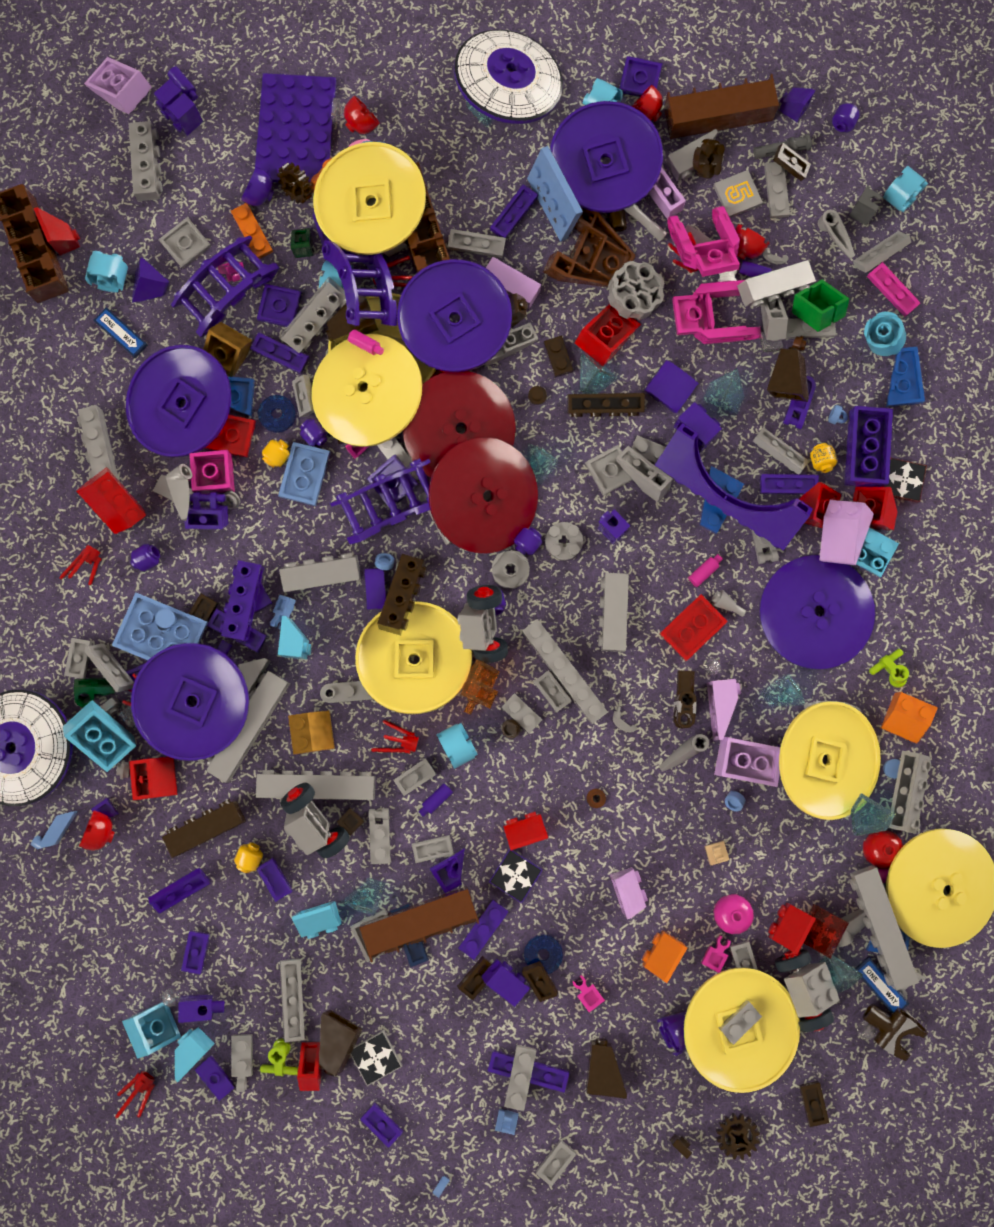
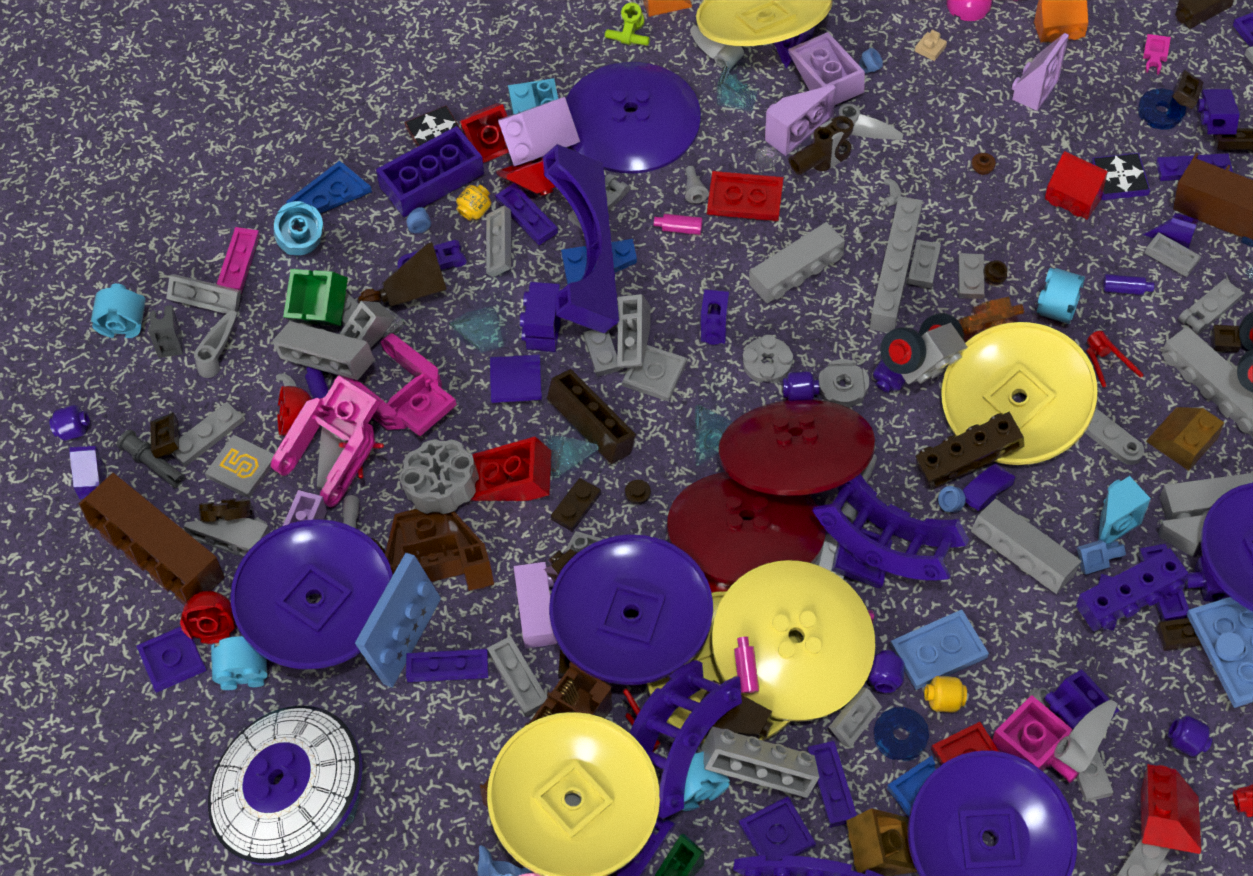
camera: 130 degrees left, 25 degrees down
(414, 777) = (1126, 316): light grey plate -> none

